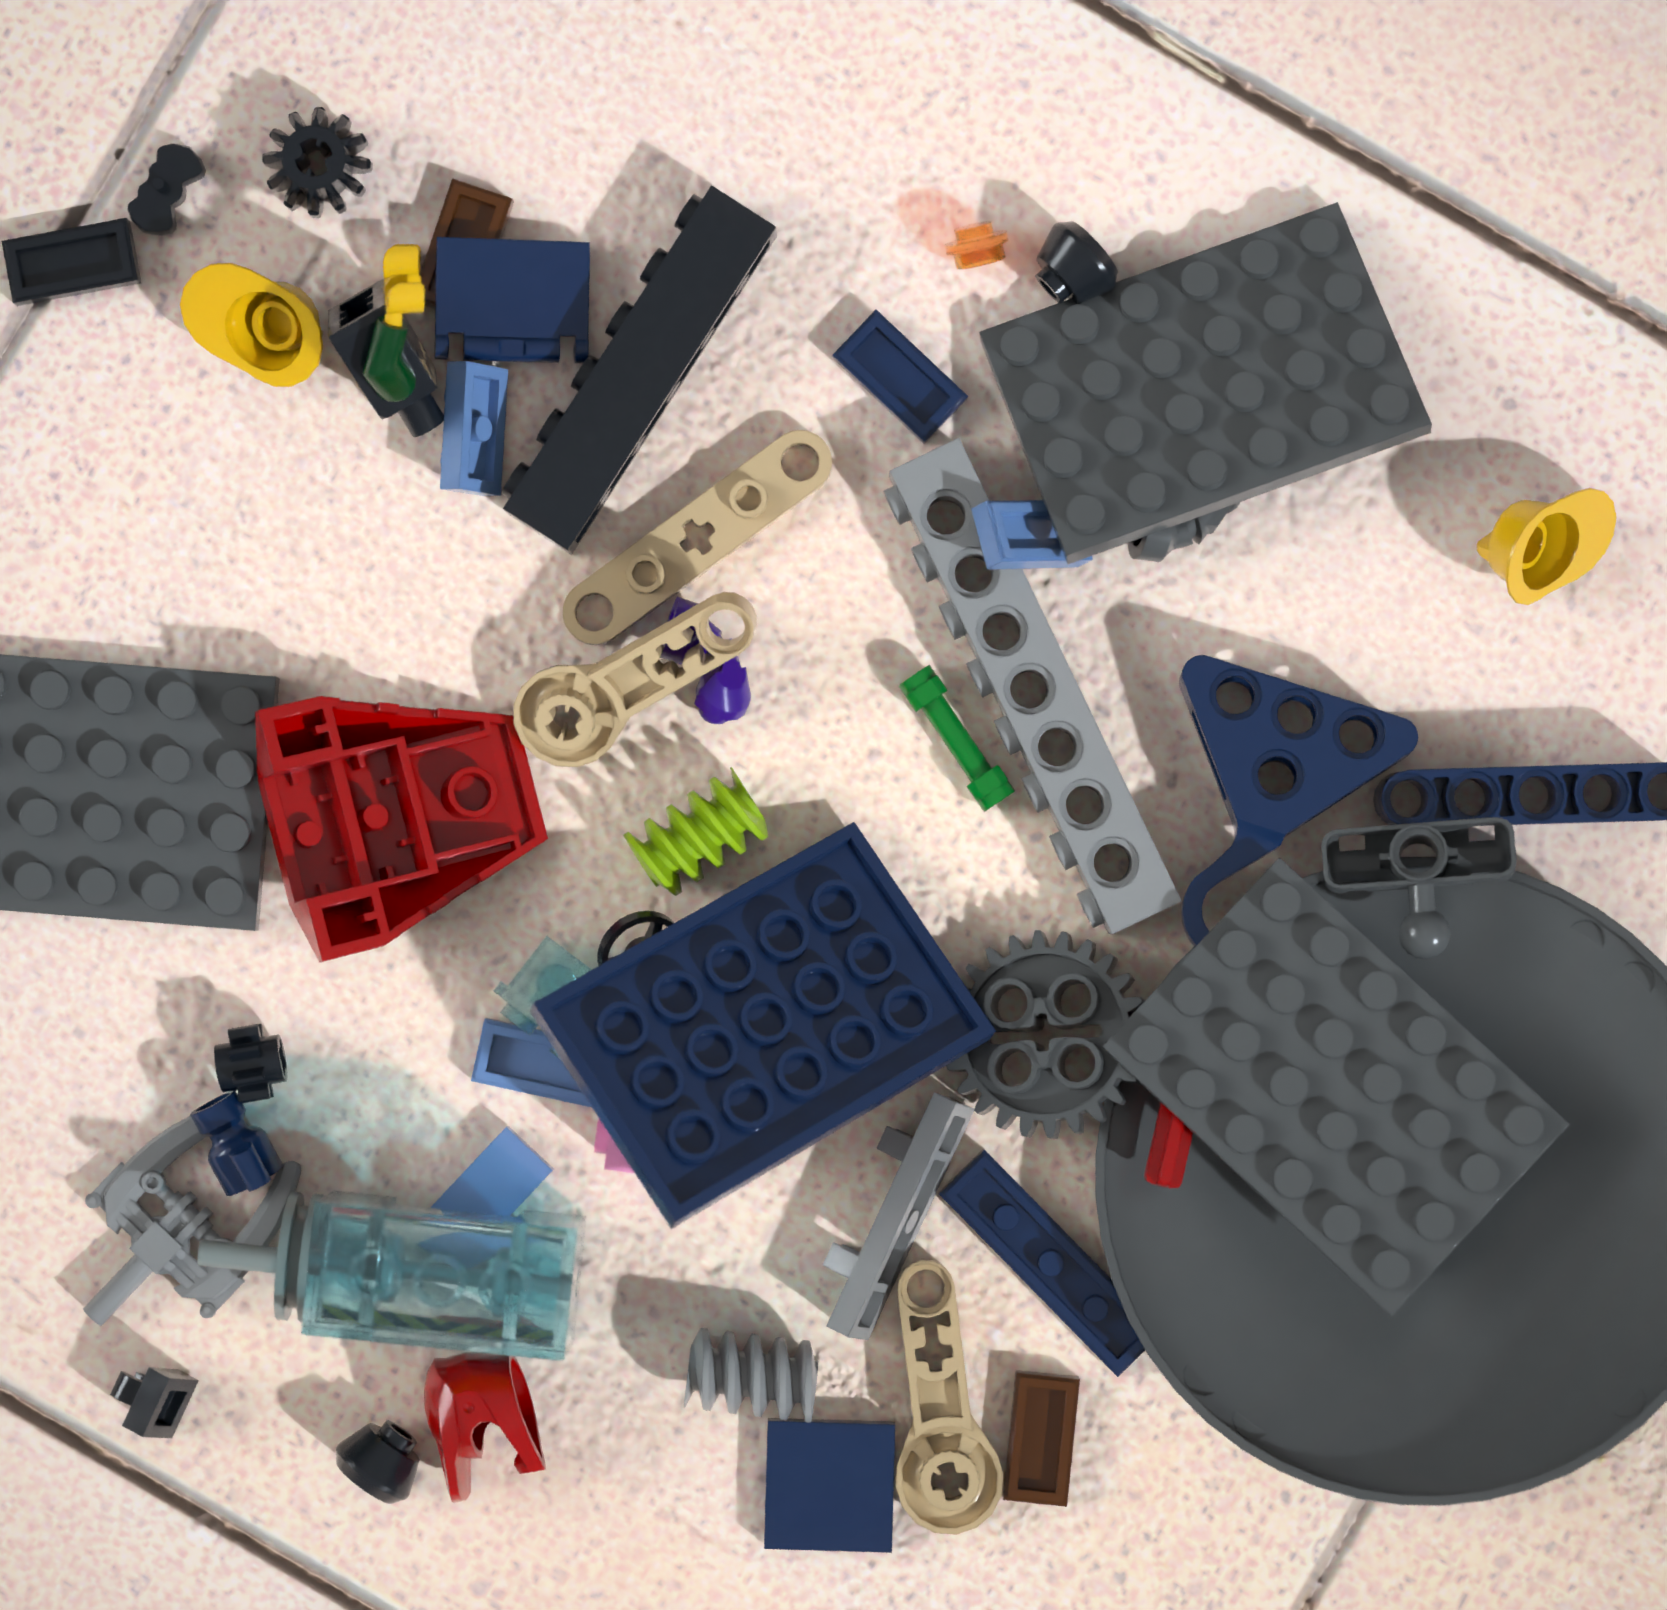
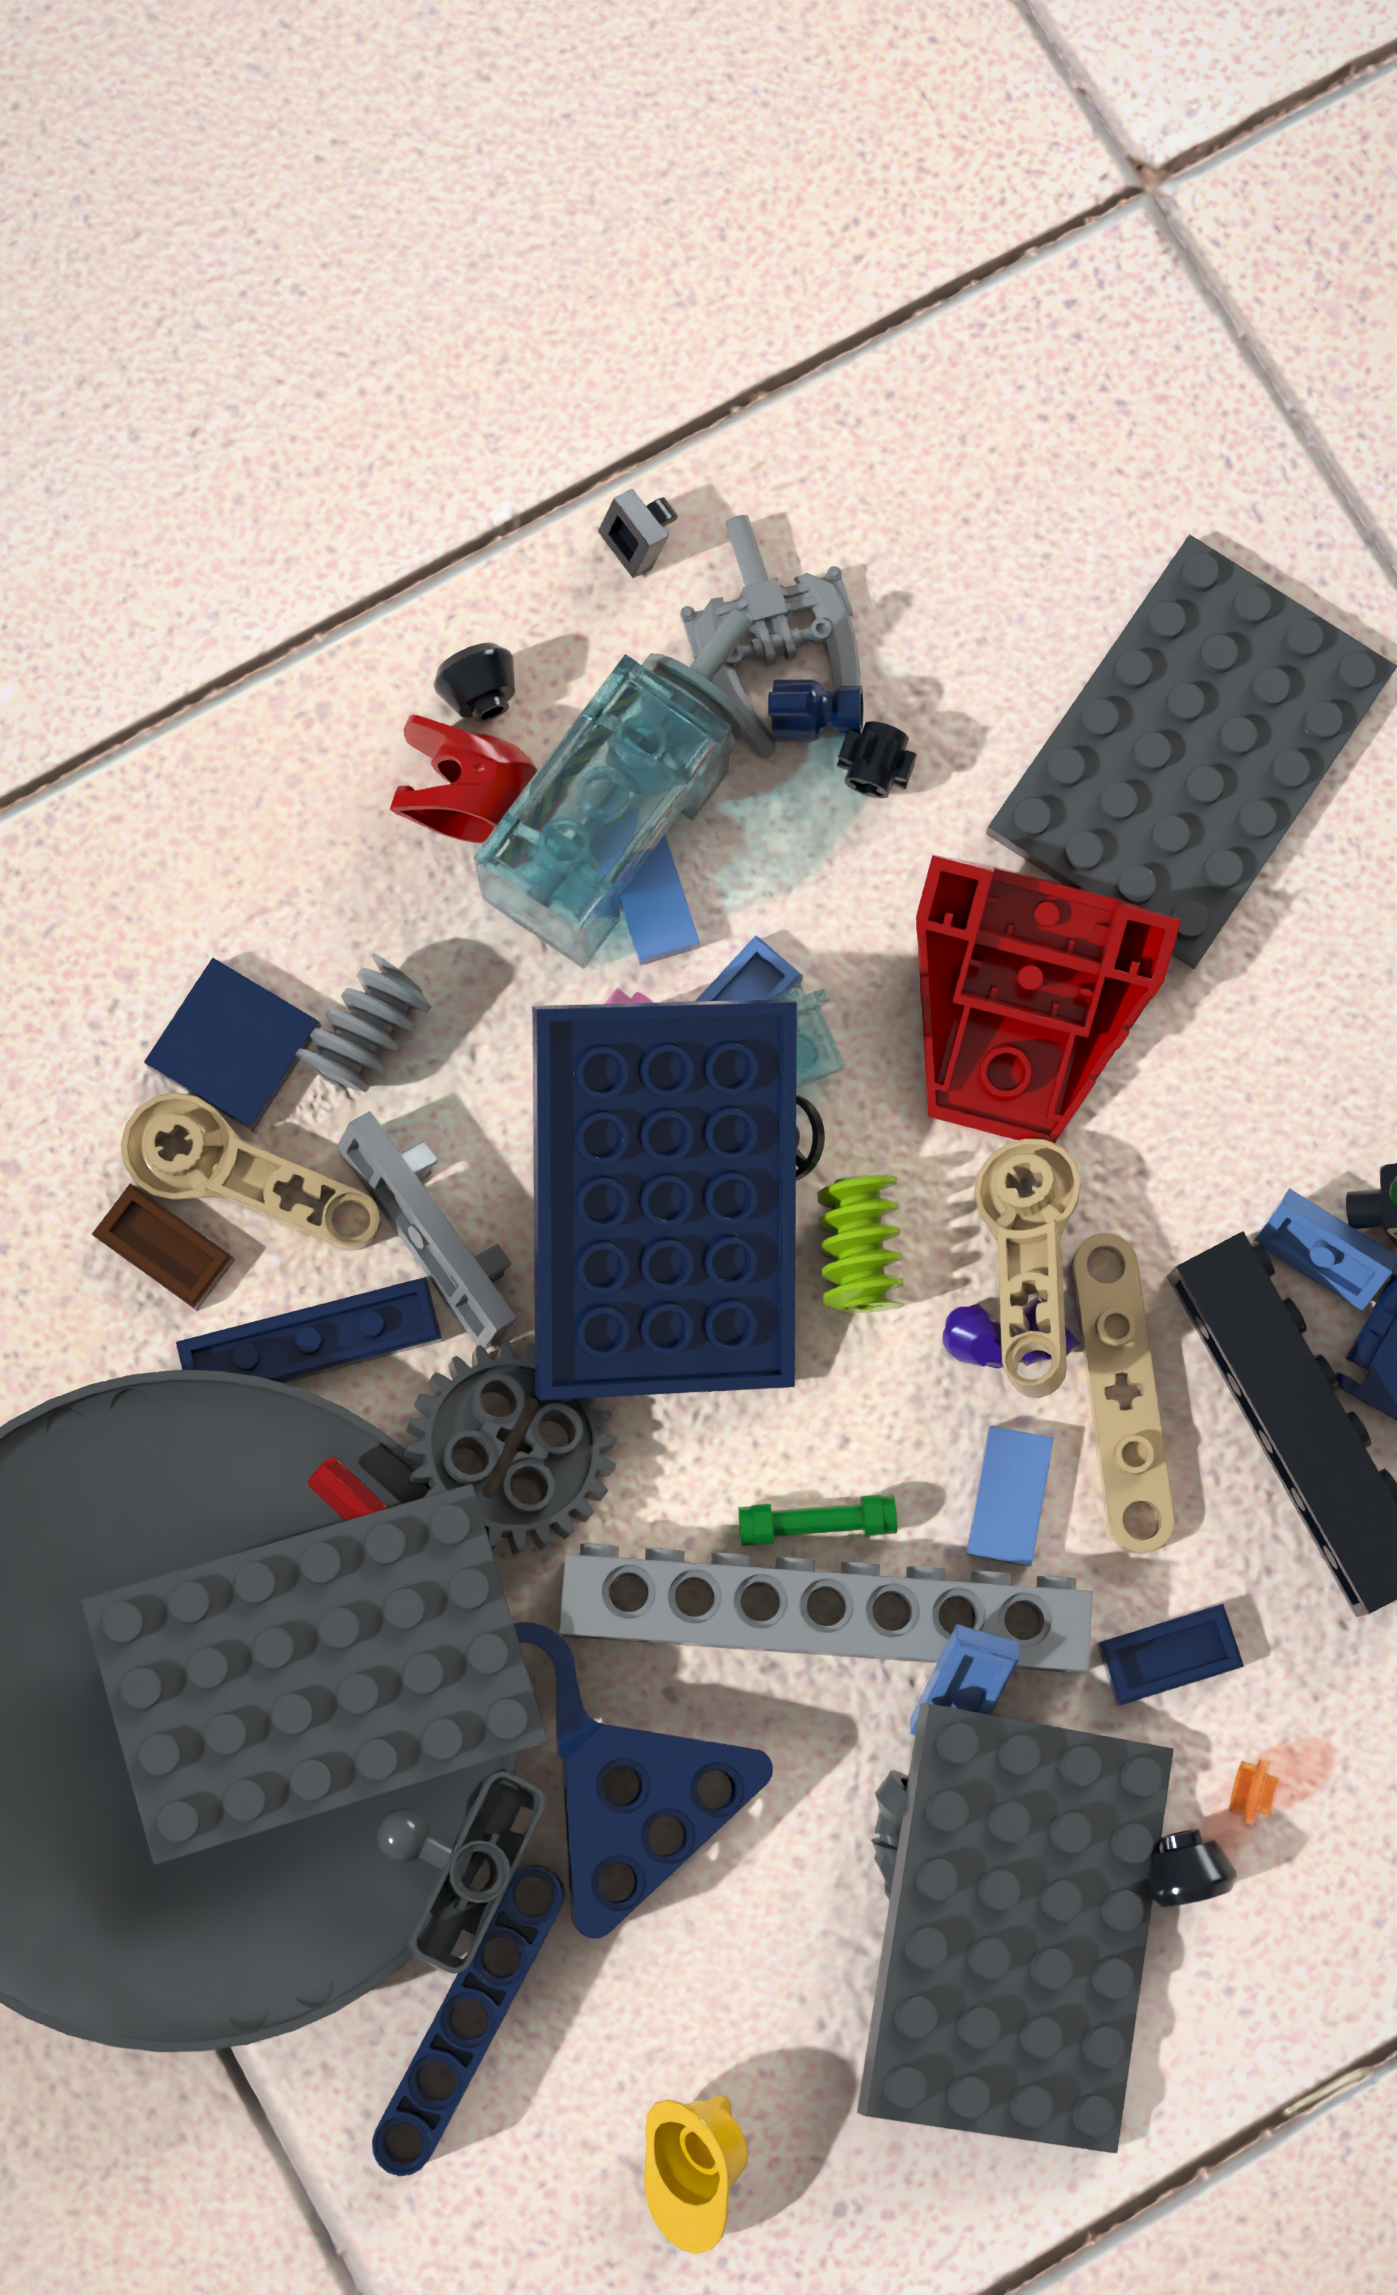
camera: 115 degrees right, 10 degrees down
(842, 585) = (1009, 1496): none -> medium blue tile

